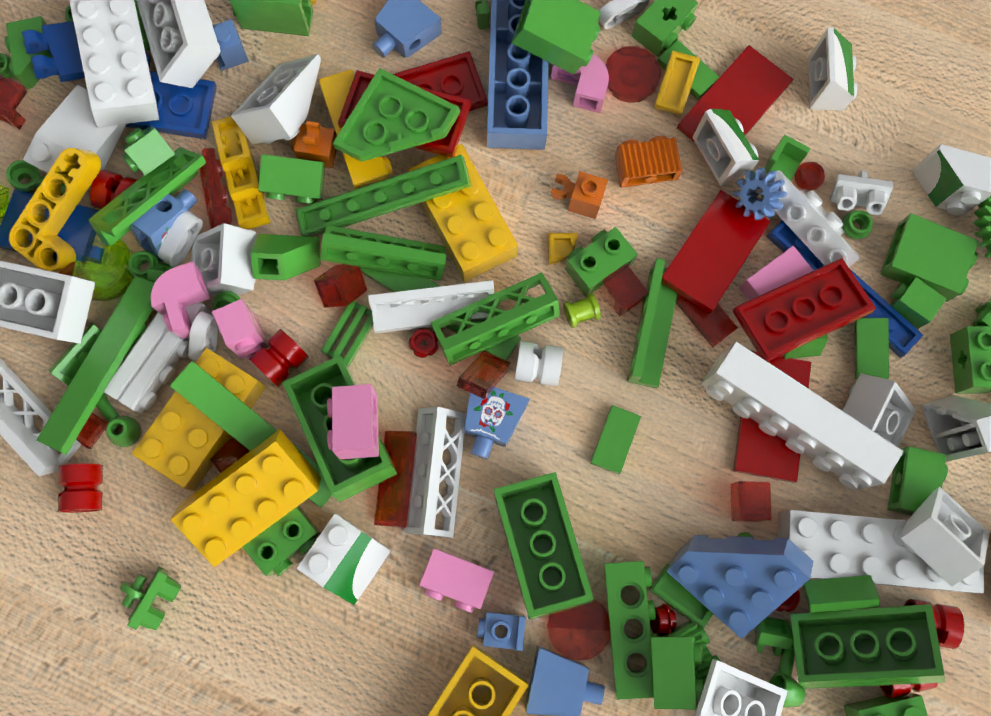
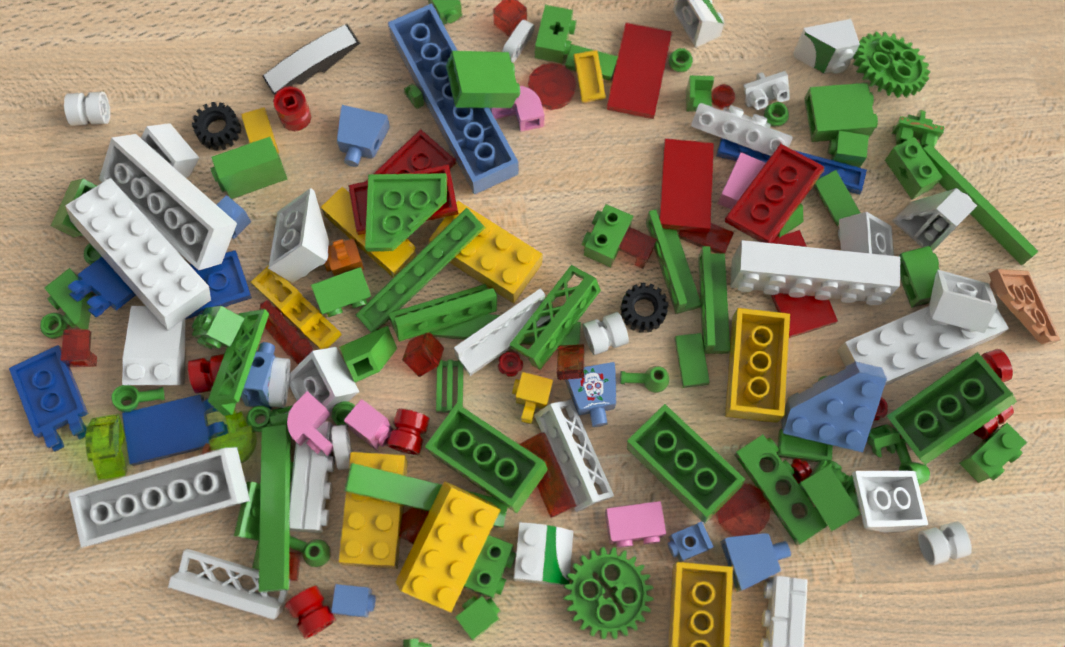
camera: 25 degrees left, 5 degrees down
(77, 171) = (174, 403): yellow beam -> none
(128, 500) = (353, 601): none -> medium blue brick
(242, 585) = (478, 616): none -> bright green brick
(353, 422) = (500, 443): bright pink brick -> none
(358, 640) = (627, 577): none -> bright green gear
(429, 386) = (533, 393): none -> yellow brick
(556, 434) = (648, 379): none -> bright green bar
(560, 246) = (571, 239): yellow tile -> none
(582, 310) = (614, 278): lime bush -> none
(584, 194) = (569, 192): orange brick -> none
(601, 340) = (650, 294): none -> black tyre
(648, 161) = (600, 144): orange brick -> none
(673, 391) = (713, 302): none -> bright green fence
(681, 483) = (757, 365): none -> yellow brick
(724, 145) = (651, 105): white slope -> none
(751, 501) = (813, 352): clear red panel -> none
(770, 190) = (704, 121): medium blue gear -> none
(790, 109) = (680, 54): none -> bright green plate
(841, 594) = (913, 381): bright green tile -> none

